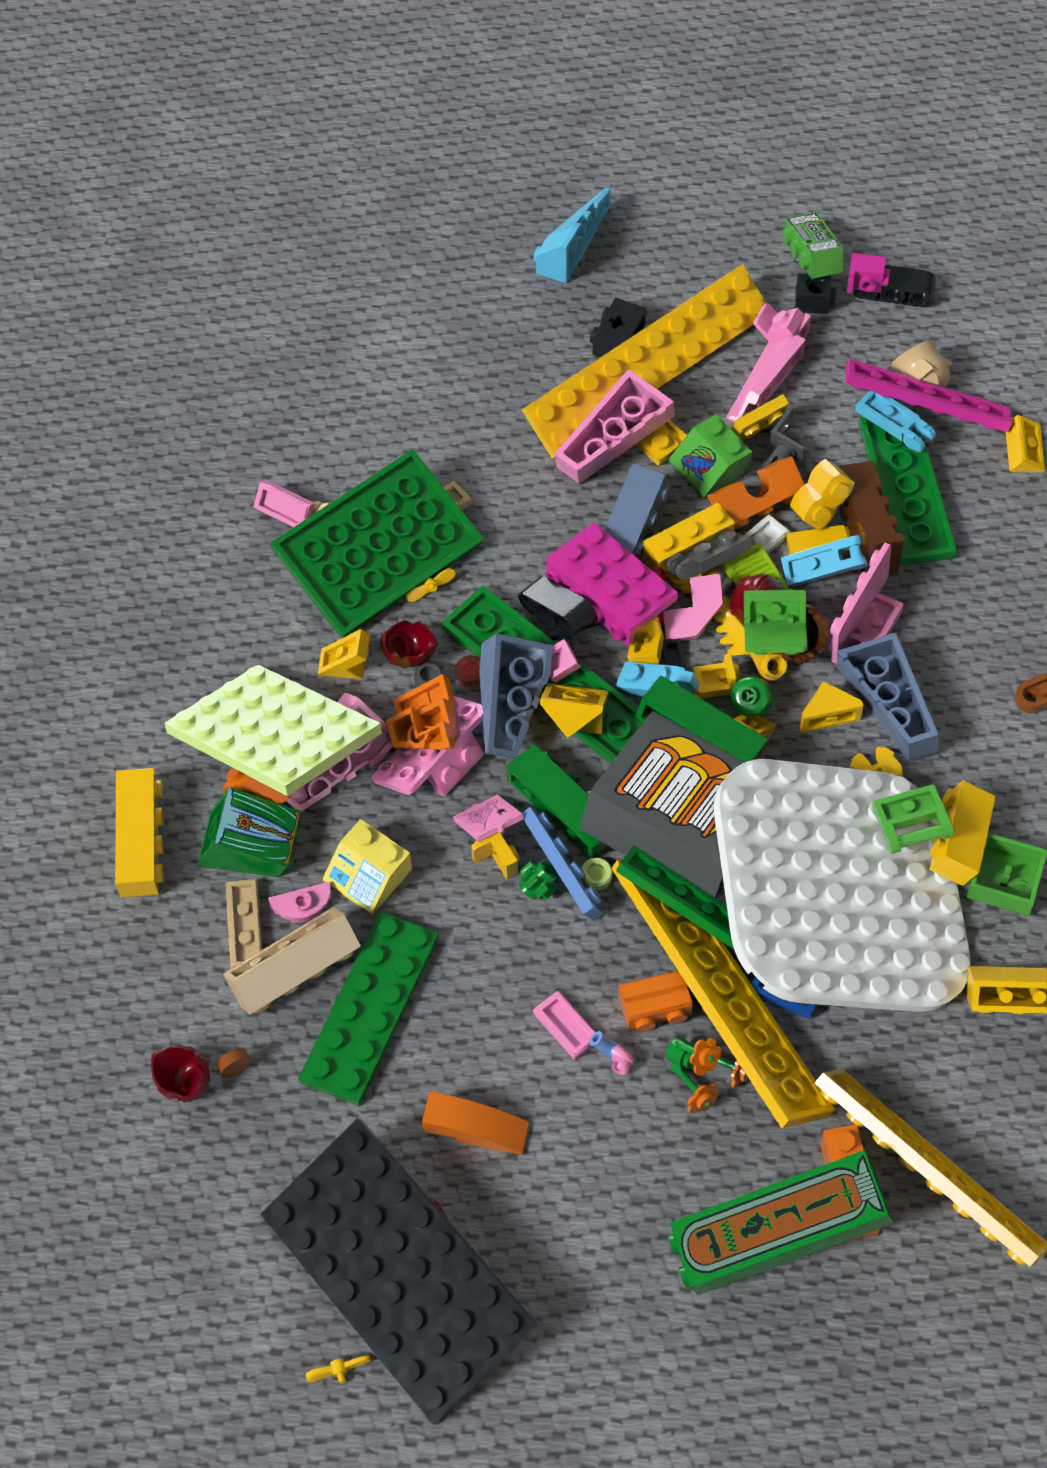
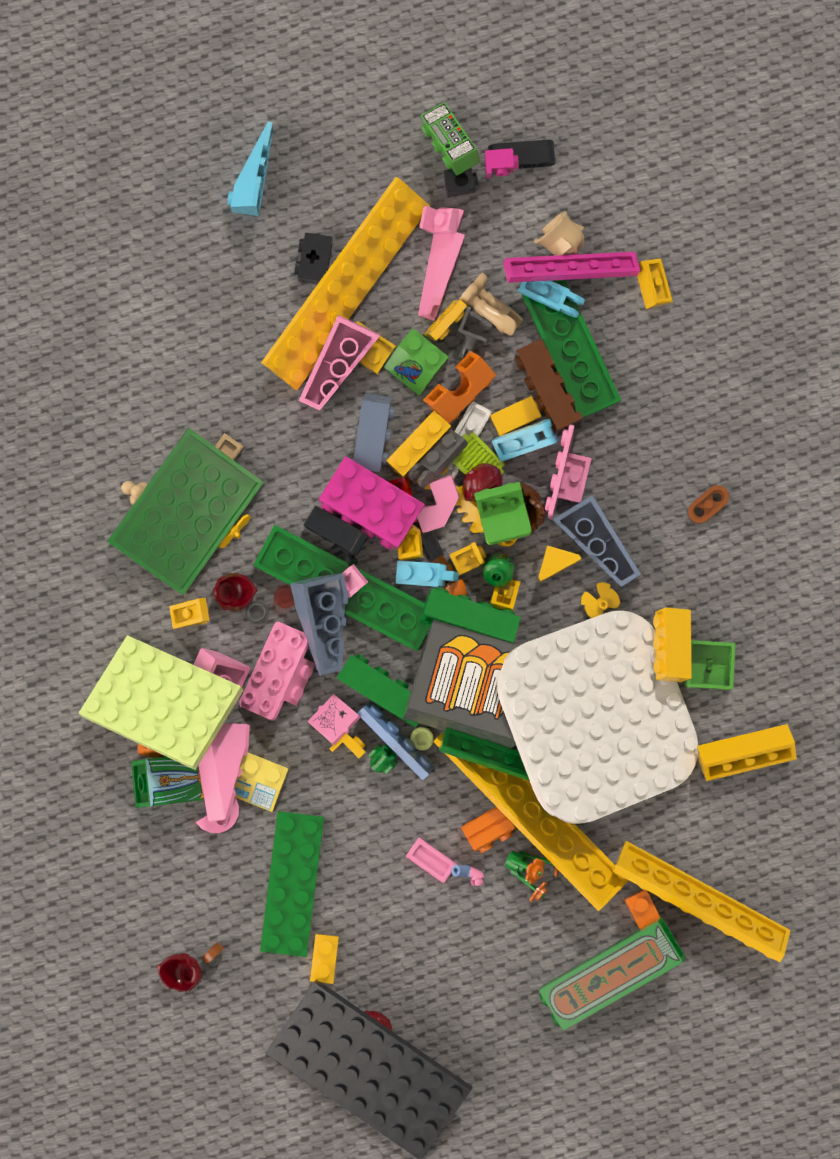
camera: 20 degrees left, 25 degrees up
(137, 833) = (86, 799): yellow brick -> none
(243, 920) = (185, 845): tan tile -> none
(282, 503) = (101, 492): bright pink tile -> none
(292, 961) = (233, 867): tan brick -> none
(321, 824) = (221, 768): none -> bright pink wedge
(337, 1368) = (348, 1140): yellow piece -> none
(385, 1108) = (324, 958): none -> yellow plate
(425, 717) = (267, 655): orange slope -> none
(474, 1123) = (390, 952): orange slope -> none
(575, 708) = (372, 617): yellow slope -> none
(822, 494) = (510, 381): yellow brick -> none
(828, 433) = (491, 308): none -> tan piece
(912, 809) = (633, 647): bright green plate -> none

